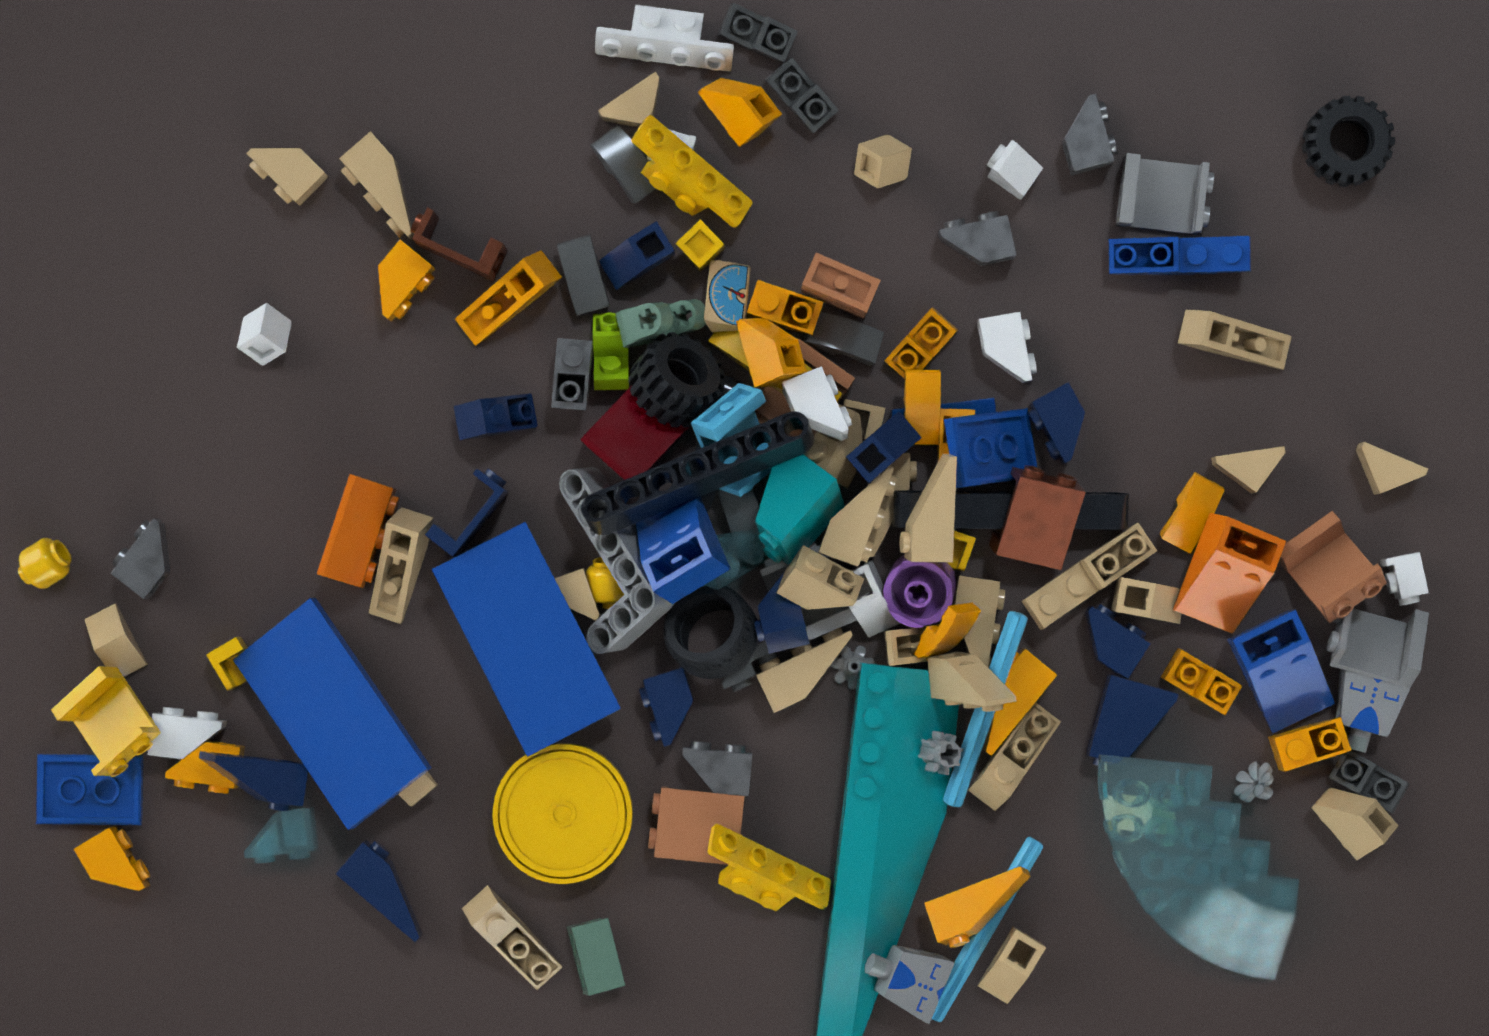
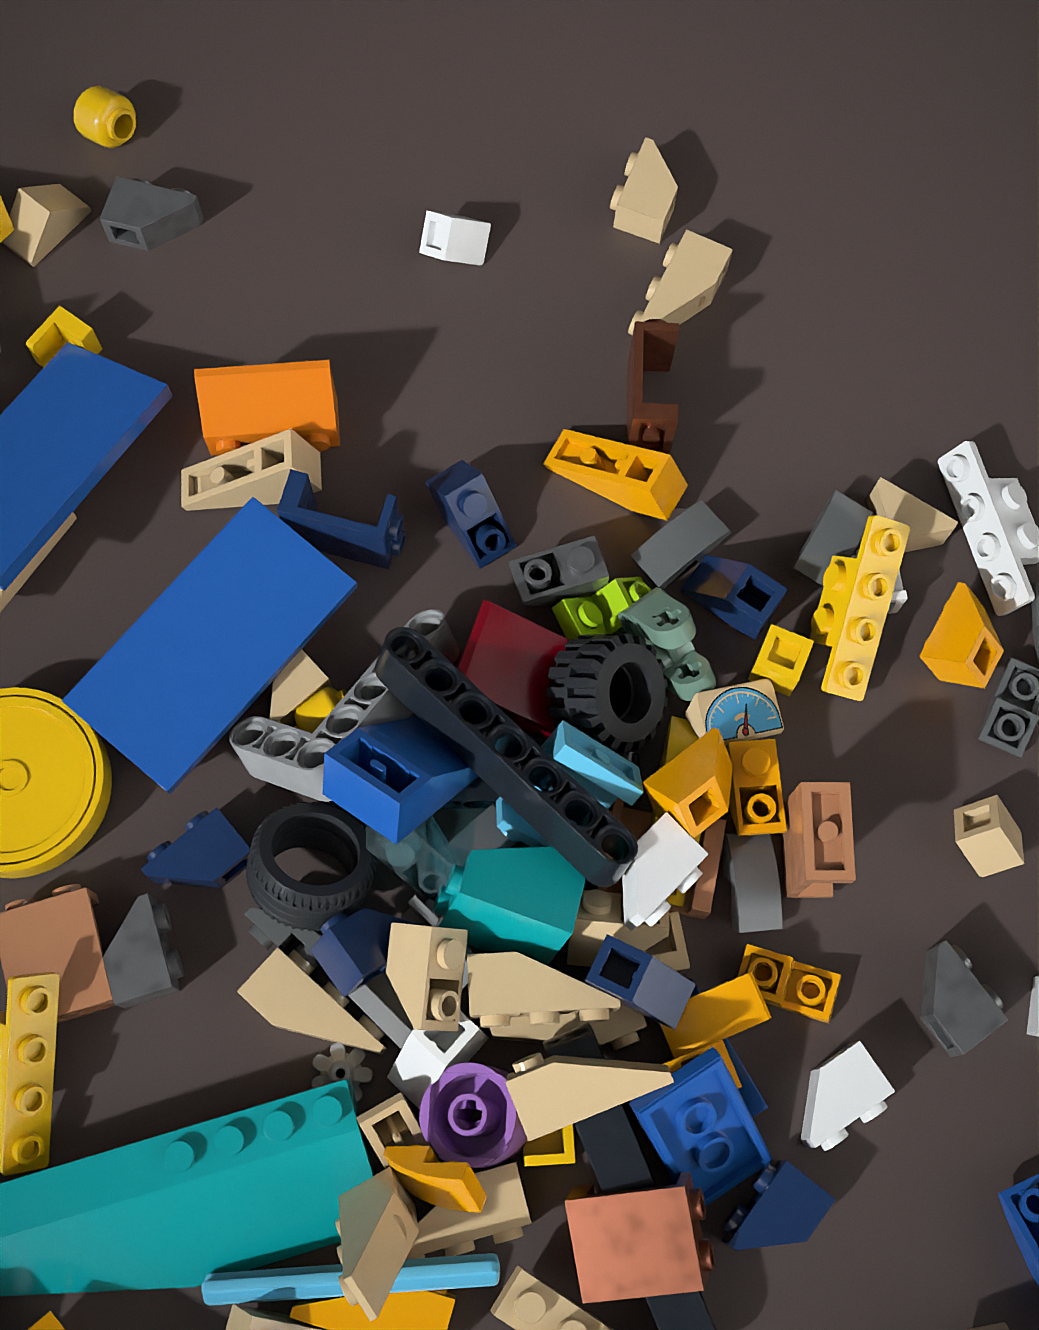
camera: 65 degrees right, 15 degrees down
(400, 277) = (581, 350): light orange slope -> none
(940, 752) = (266, 1242): light grey gear -> none

